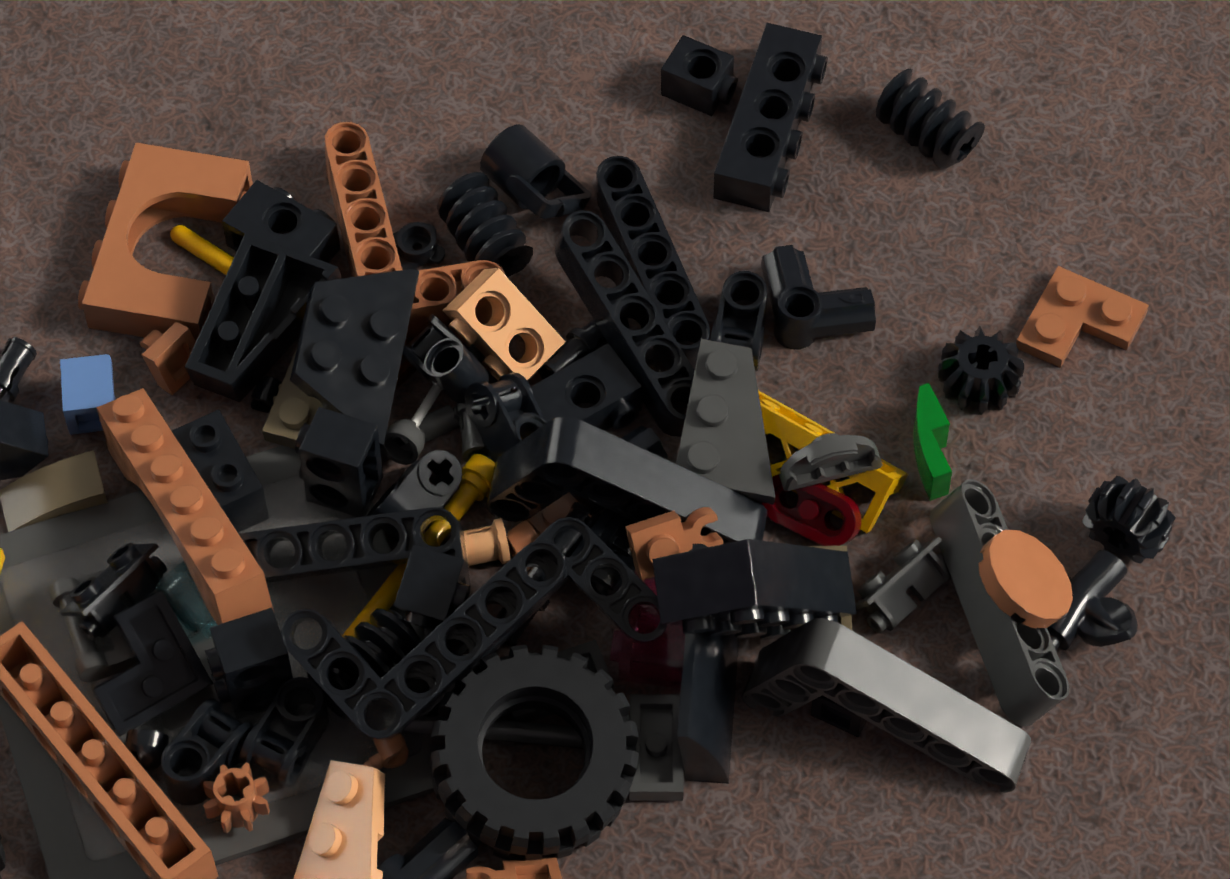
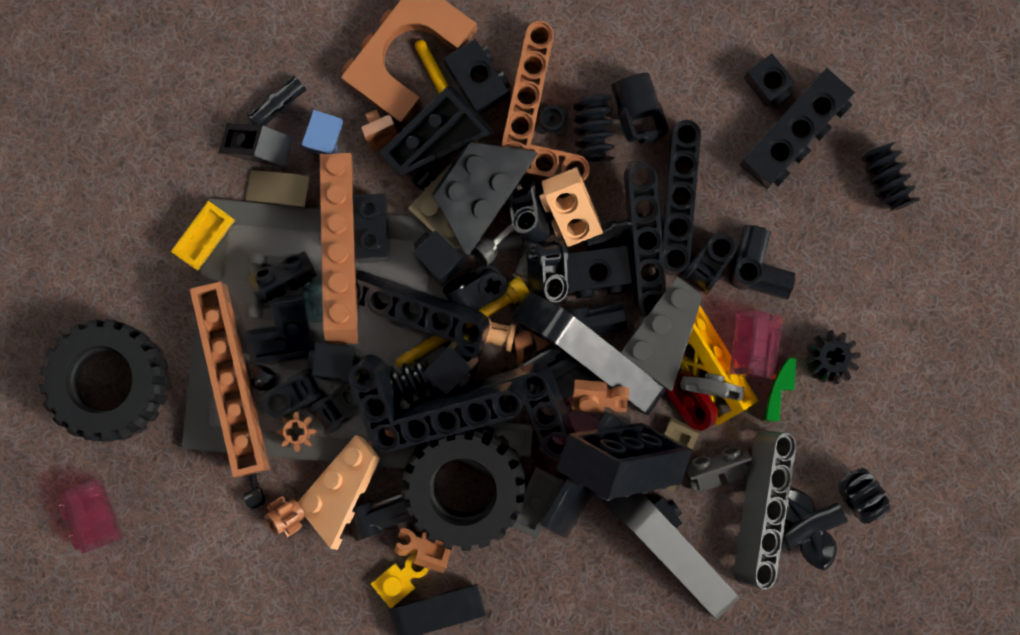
camera: 30 degrees right, 25 degrees up
(863, 392) = (756, 345): none -> clear pink brick
(1025, 578) = (784, 510): nougat tile -> none
(1074, 306) = (911, 338): nougat plate -> none

